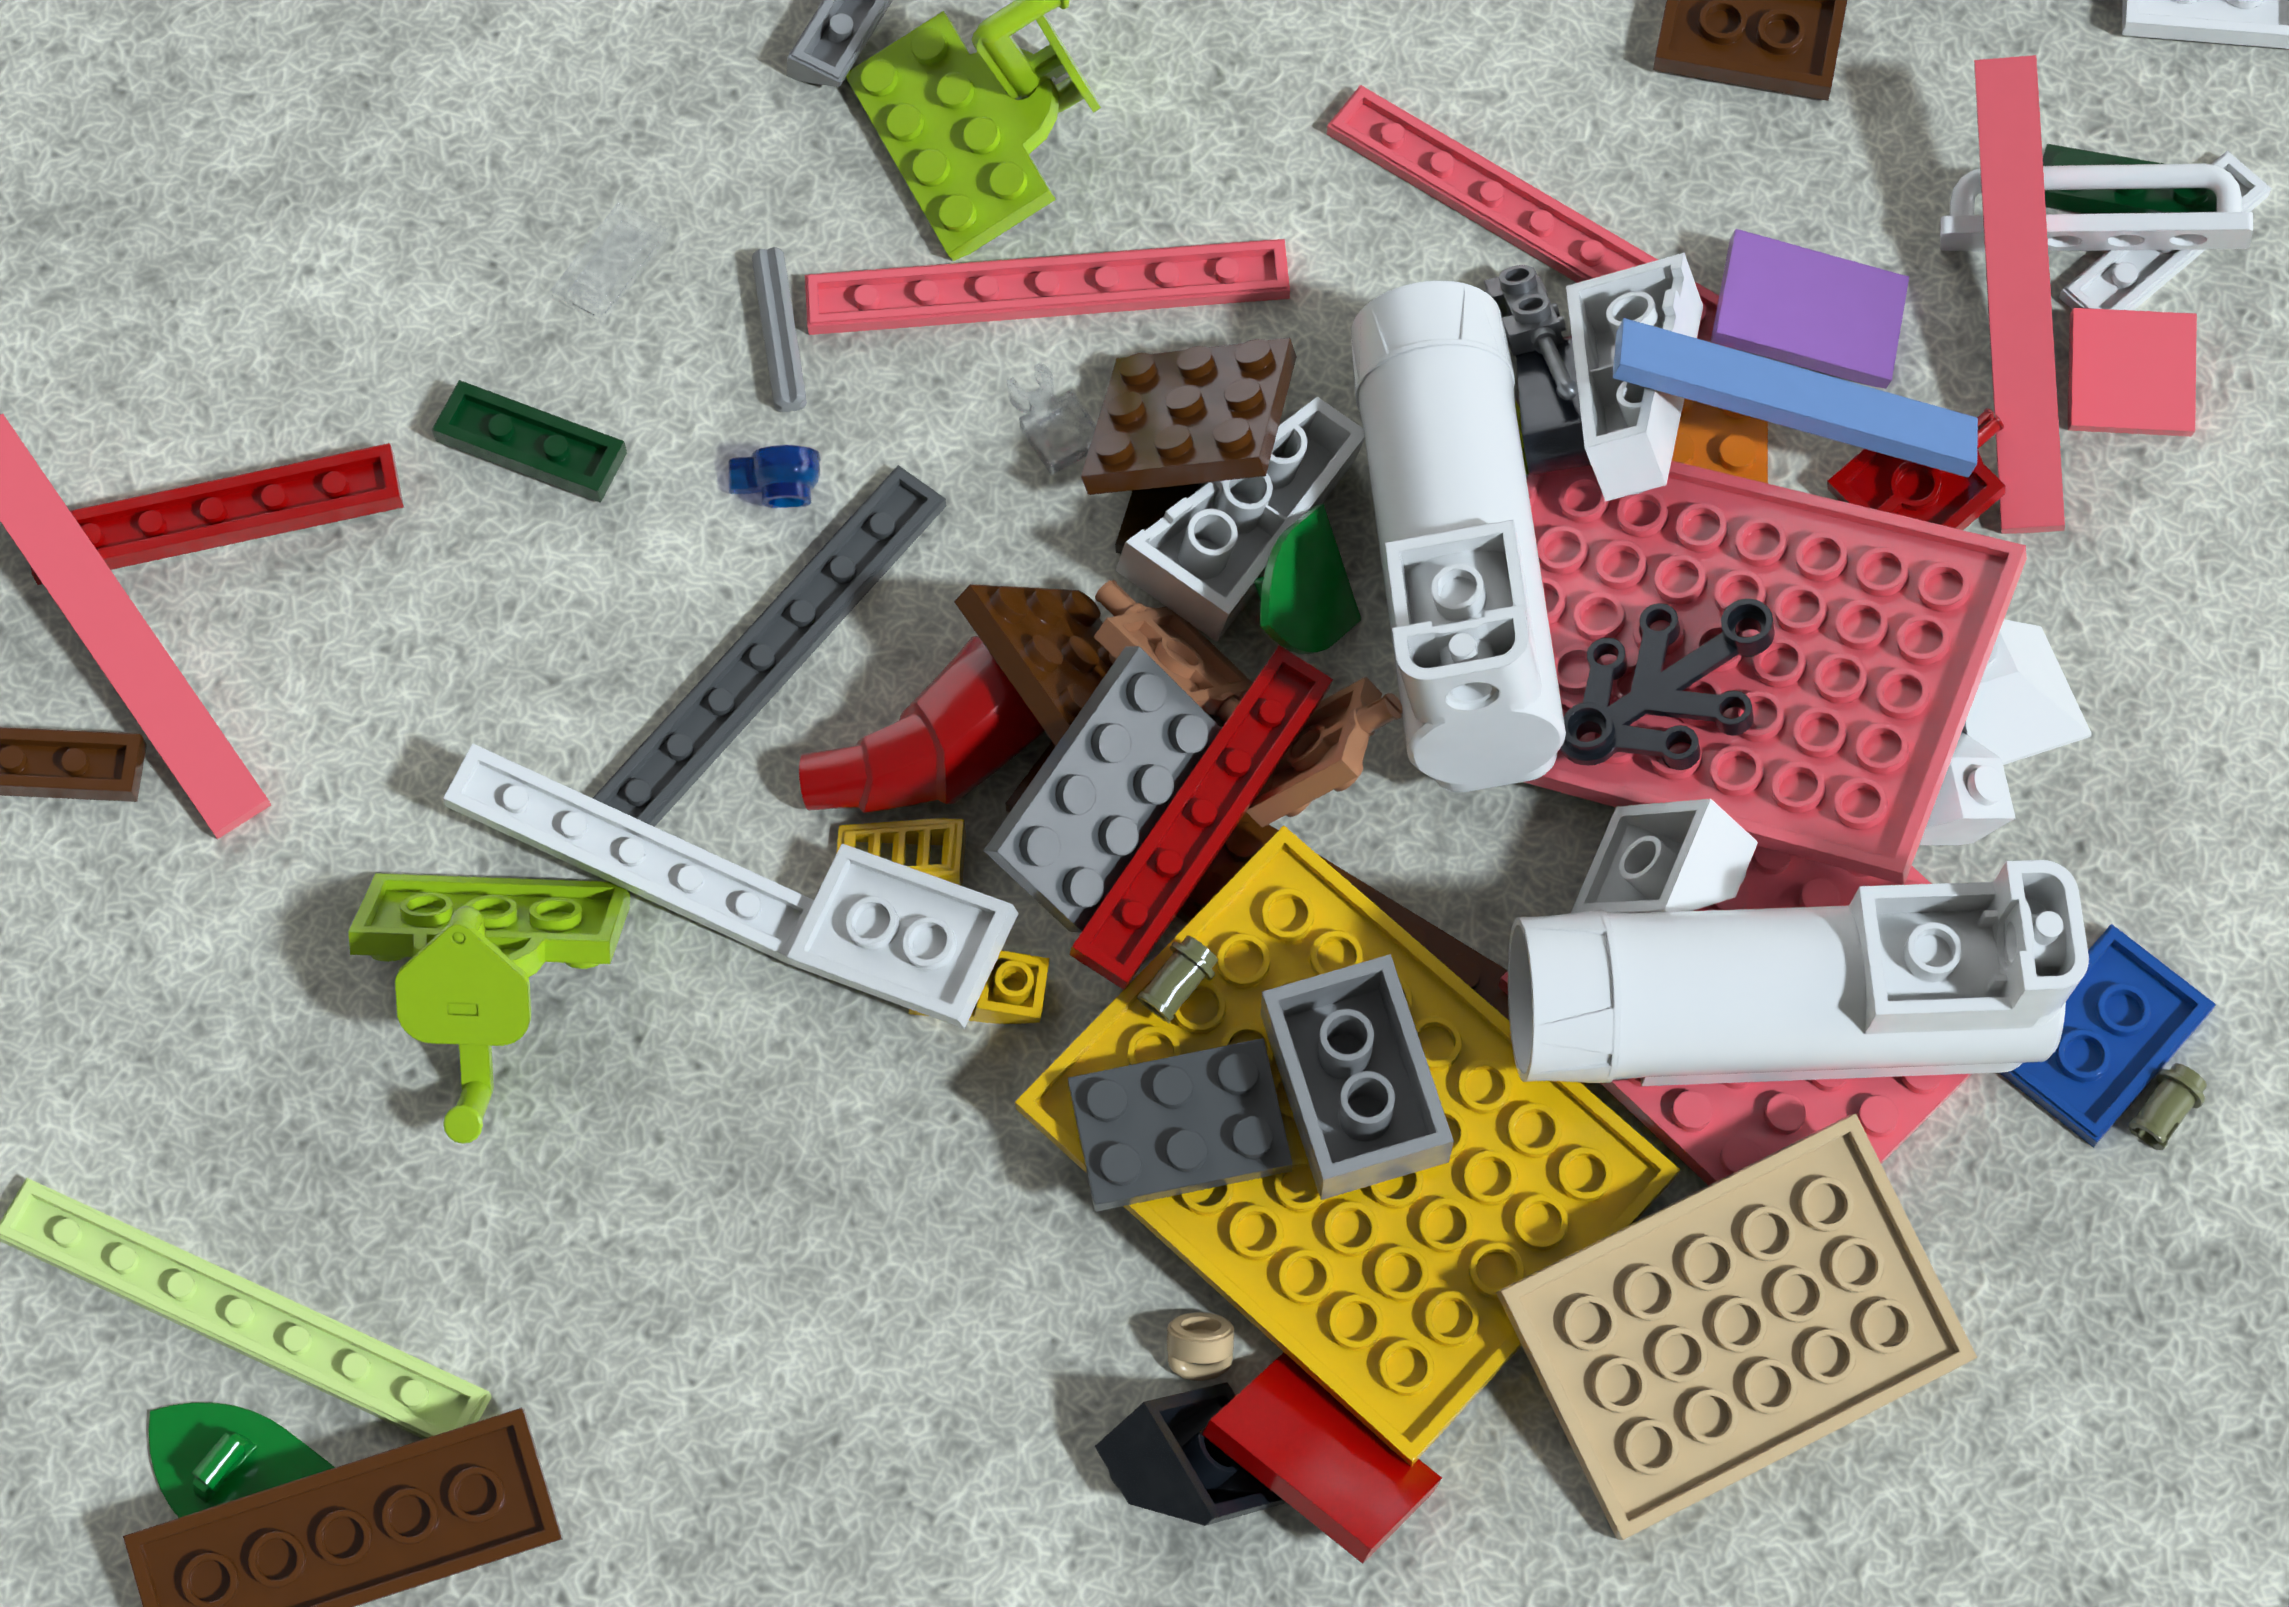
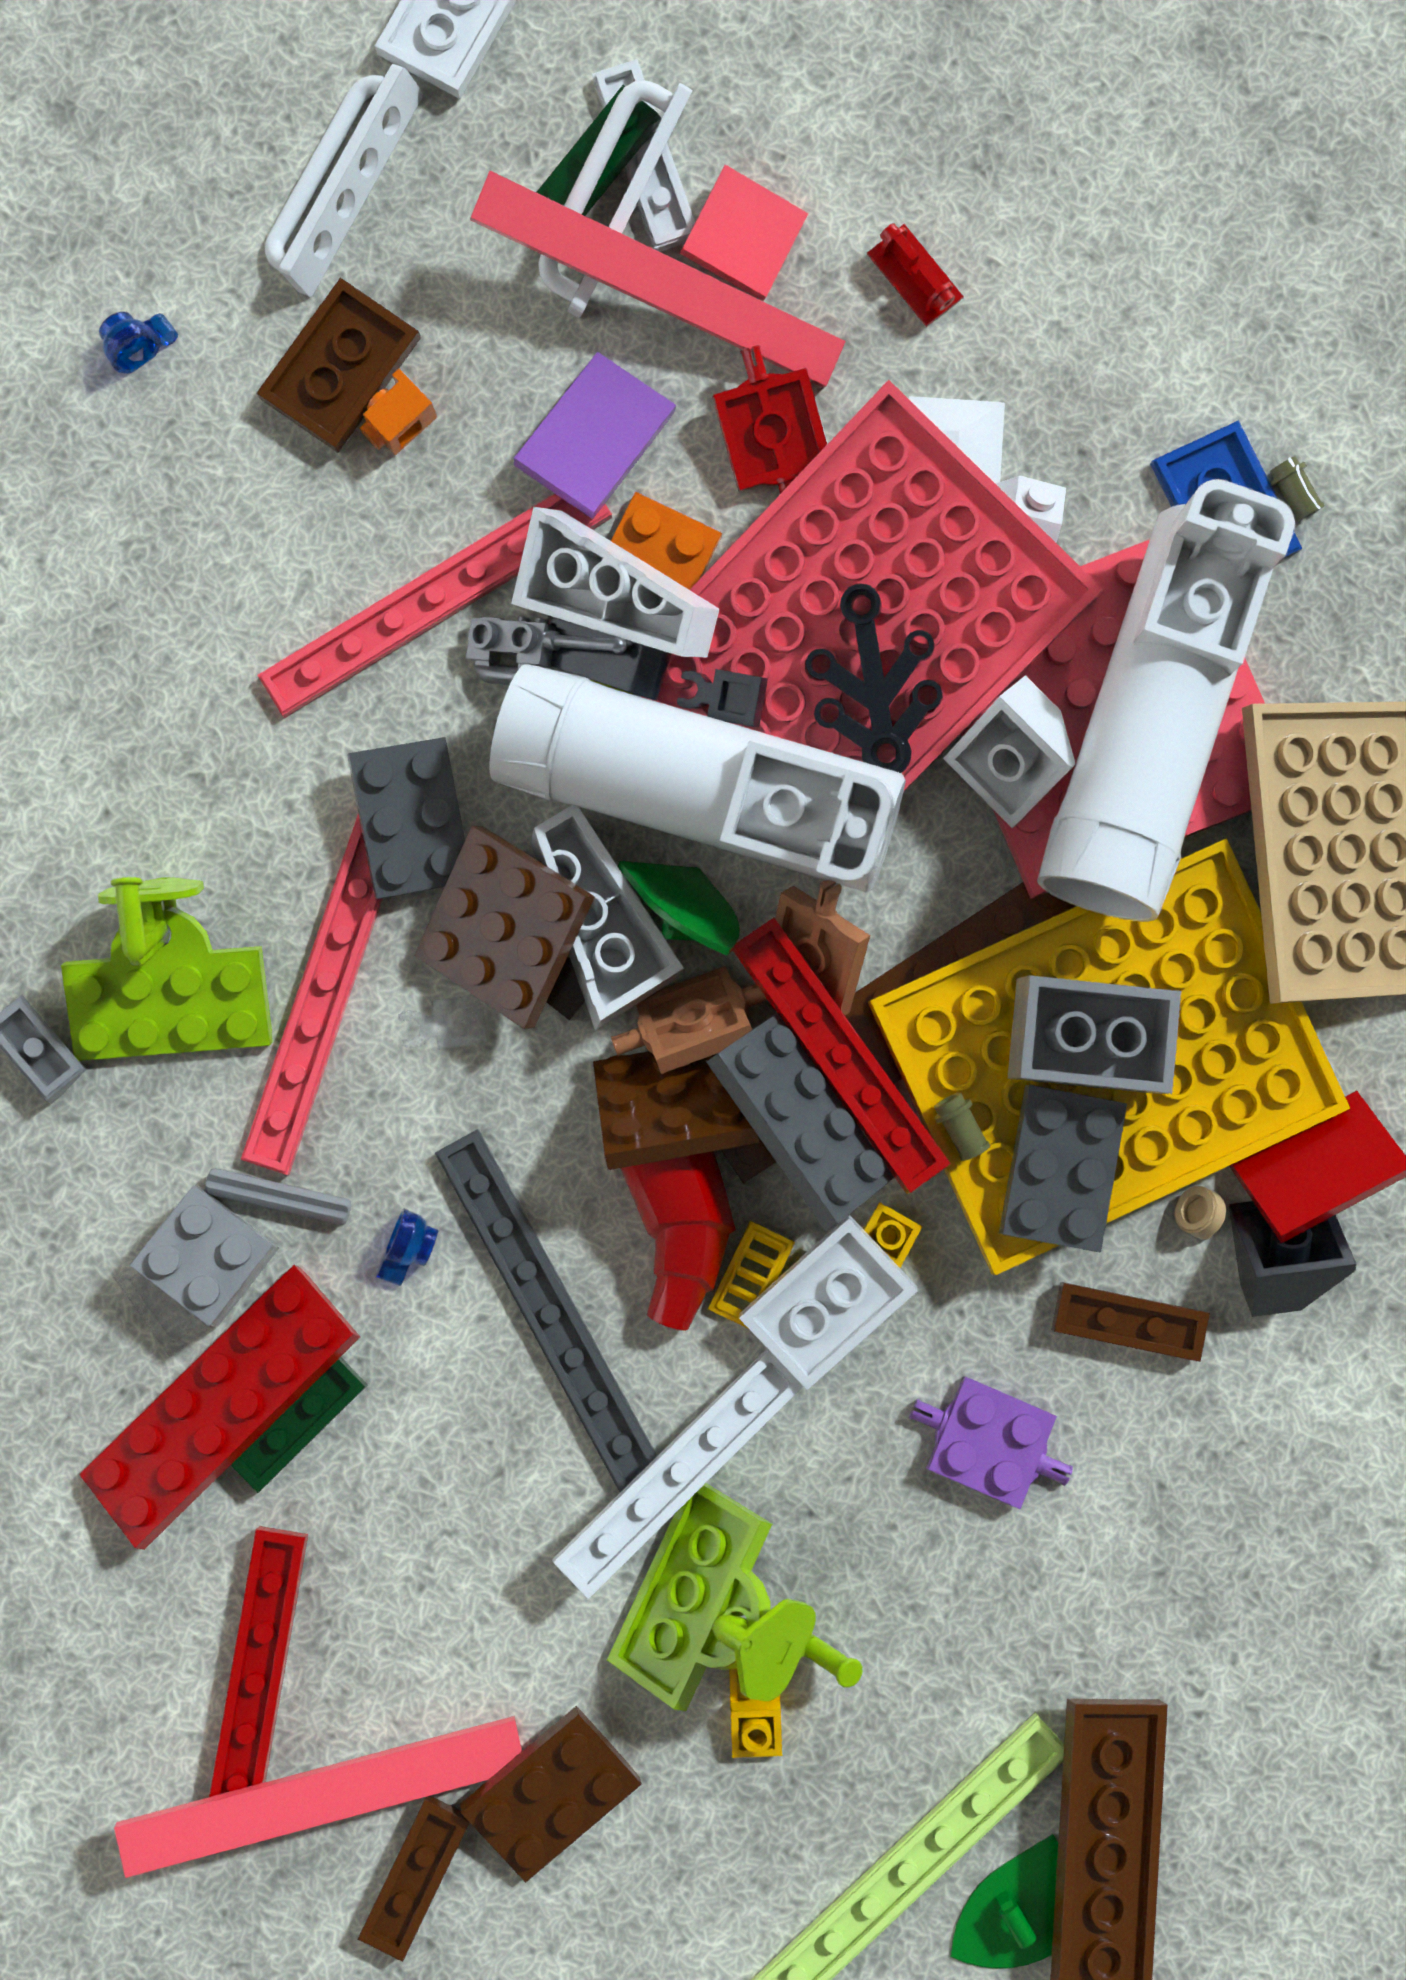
camera: 70 degrees left, 20 degrees up
(194, 870) = (550, 1794): none -> reddish brown plate
(376, 1064) = (754, 1723): none -> yellow slope
(516, 356) = (218, 1407): none -> red plate
(679, 274) = (204, 1256): none -> light grey brick
(808, 1208) = (991, 1442): none -> medium lavender plate
(1027, 1311) = (1130, 1321): none -> reddish brown plate
(1274, 281) = (407, 815): none -> dark grey plate
(1571, 544) = (730, 697): none -> black plate
(1724, 105) = (397, 415): none -> orange brick
(1795, 397) = (696, 486): medium blue tile -> none
(2191, 572) = (914, 273): none -> red hinge

